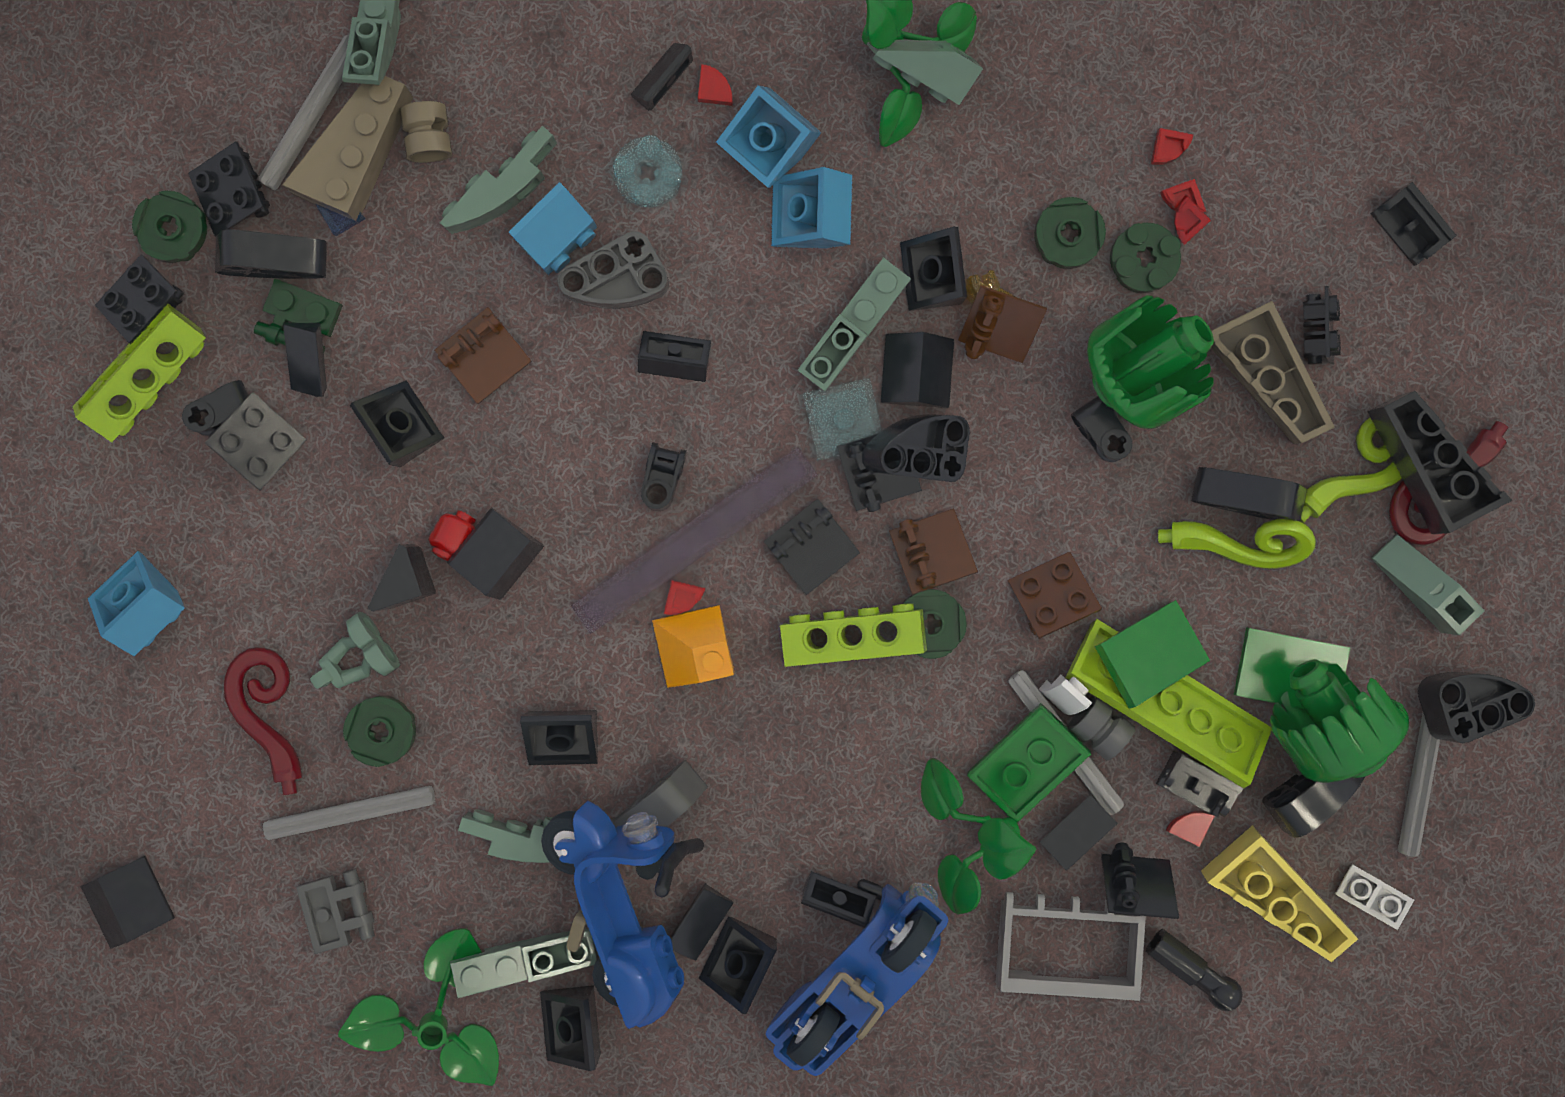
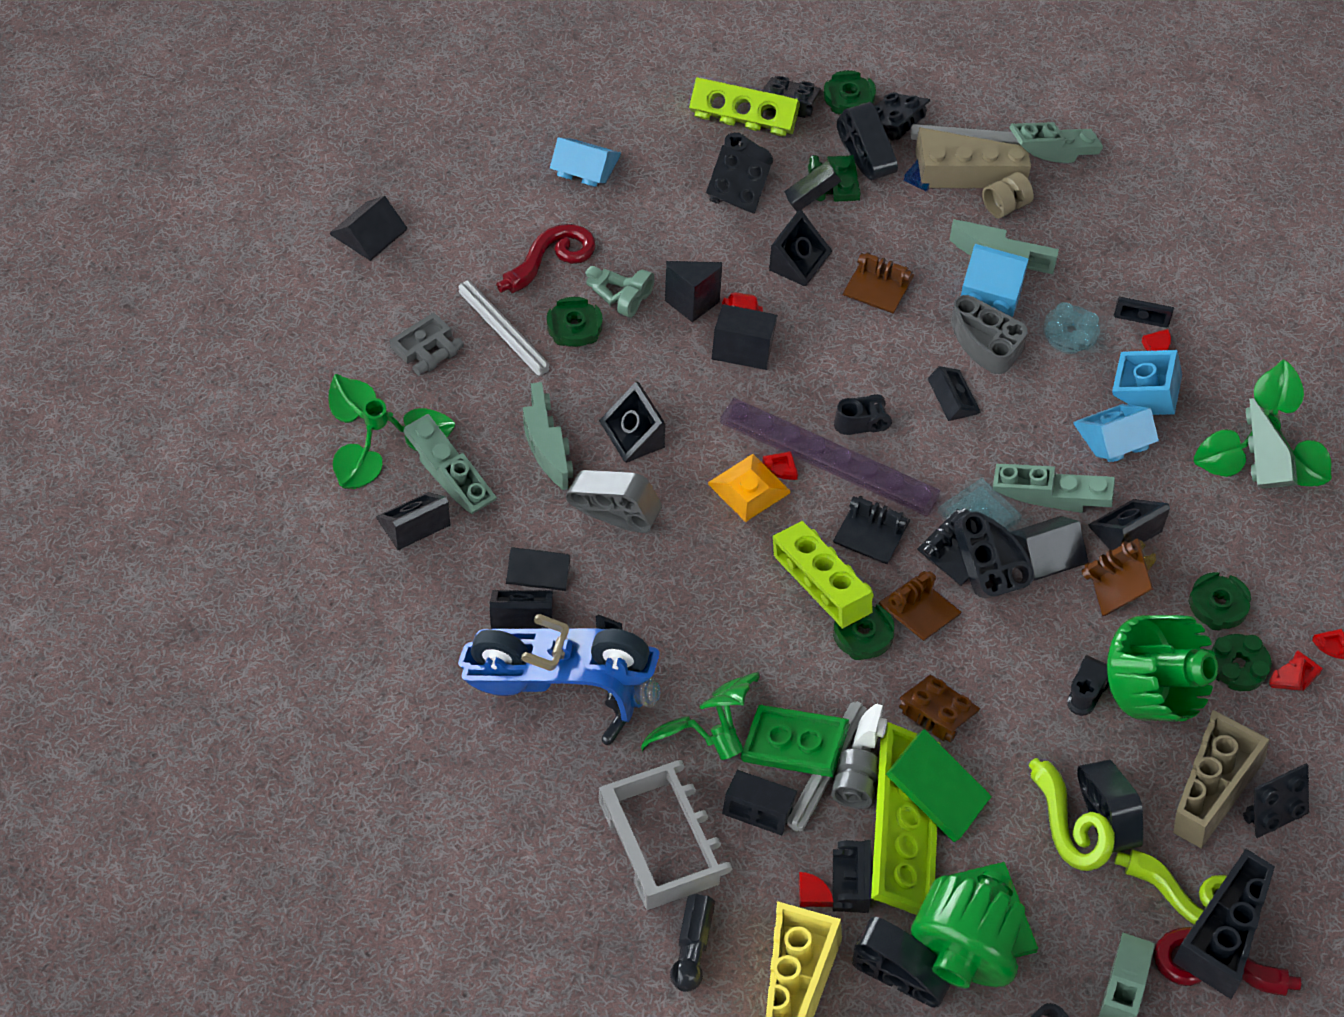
camera: 60 degrees right, 35 degrees down
(634, 962) = (498, 514): blue piece -> none
(1138, 884) = (741, 853): black hinge -> none

